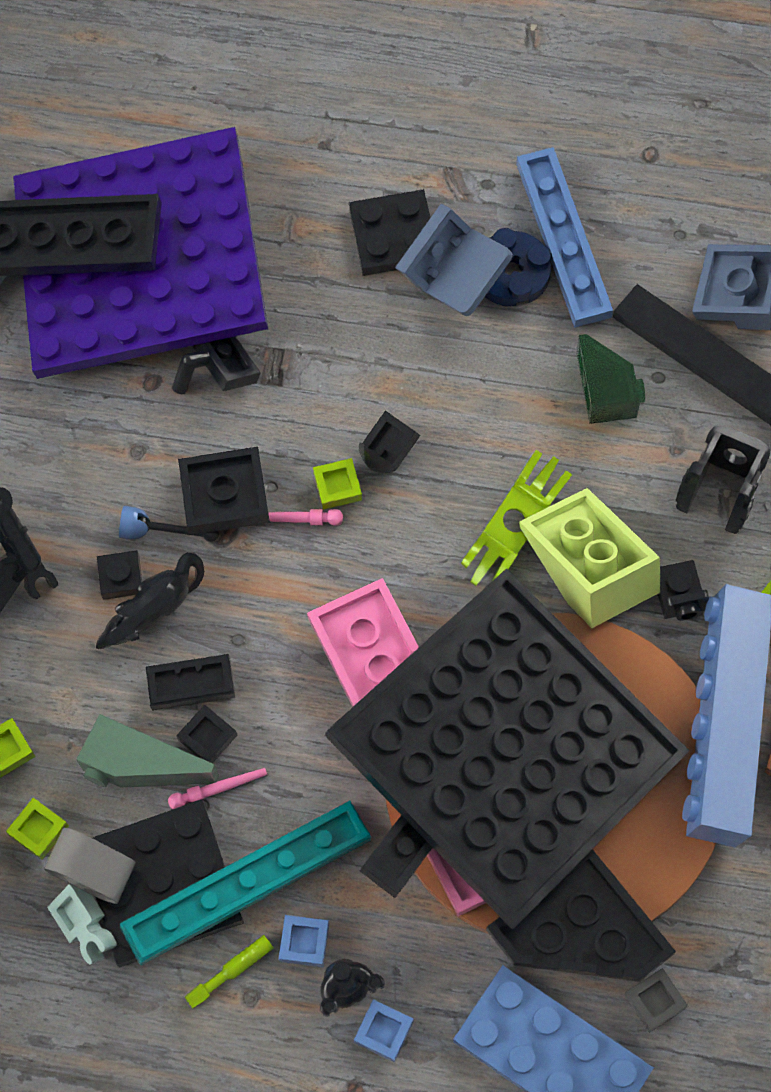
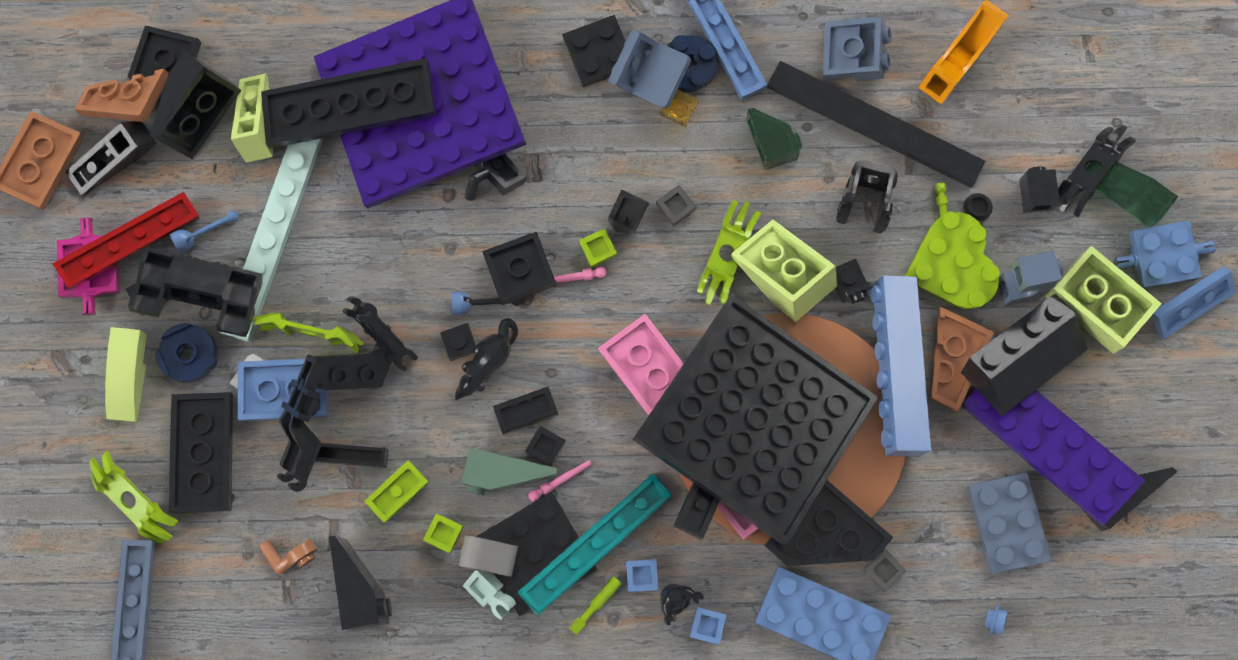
camera: 10 degrees left, 10 degrees up
(456, 446) = (676, 205): none -> dark grey plate
(488, 321) = (680, 108): none -> clear yellow plate

